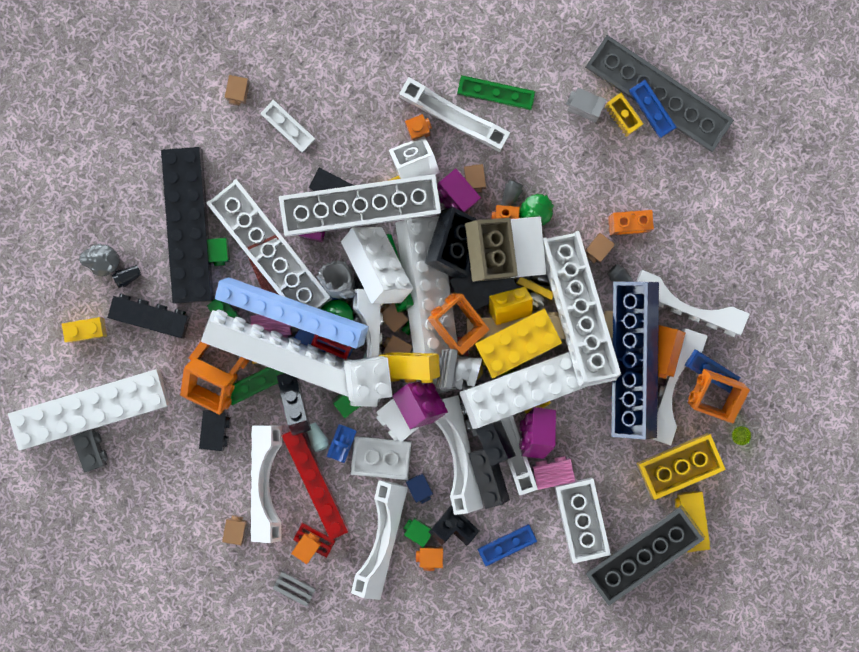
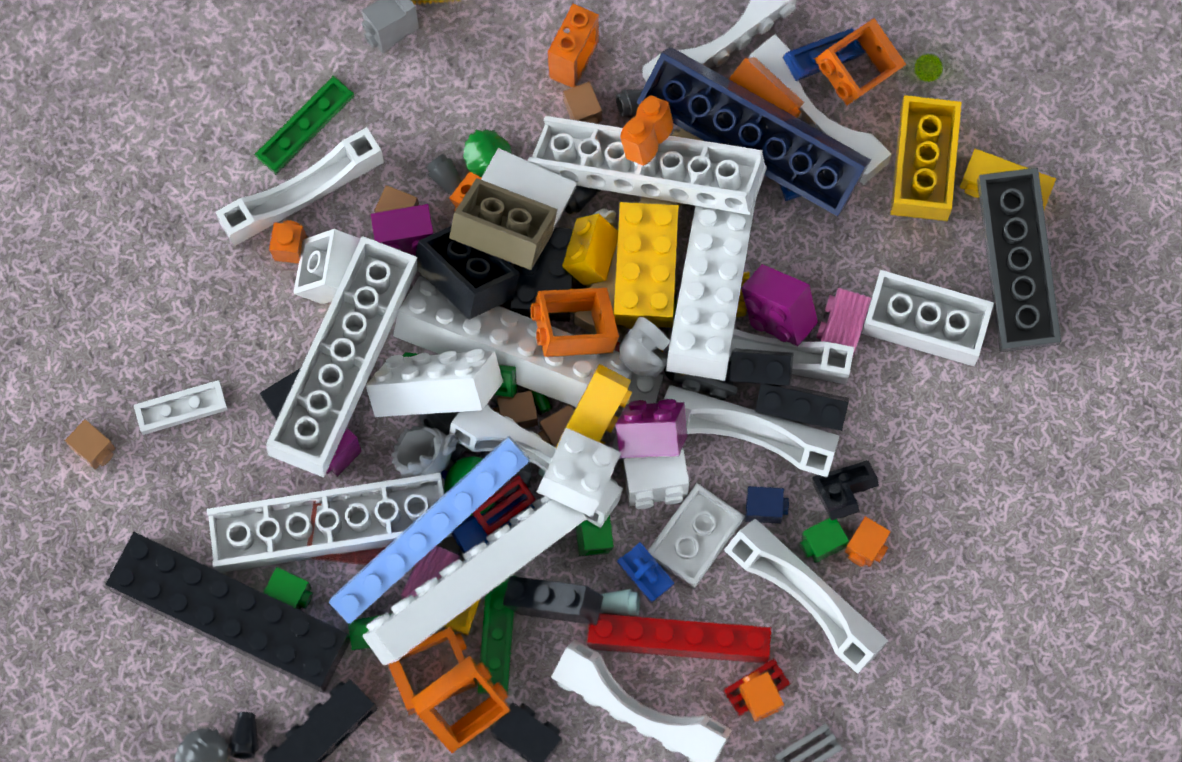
camera: 60 degrees left, 15 degrees down
(447, 369) = (627, 365): light grey tile -> none
(507, 545) = (907, 436): blue tile -> none
(535, 288) = (602, 201): yellow tile -> none
(600, 300) = (647, 130): none -> orange brick

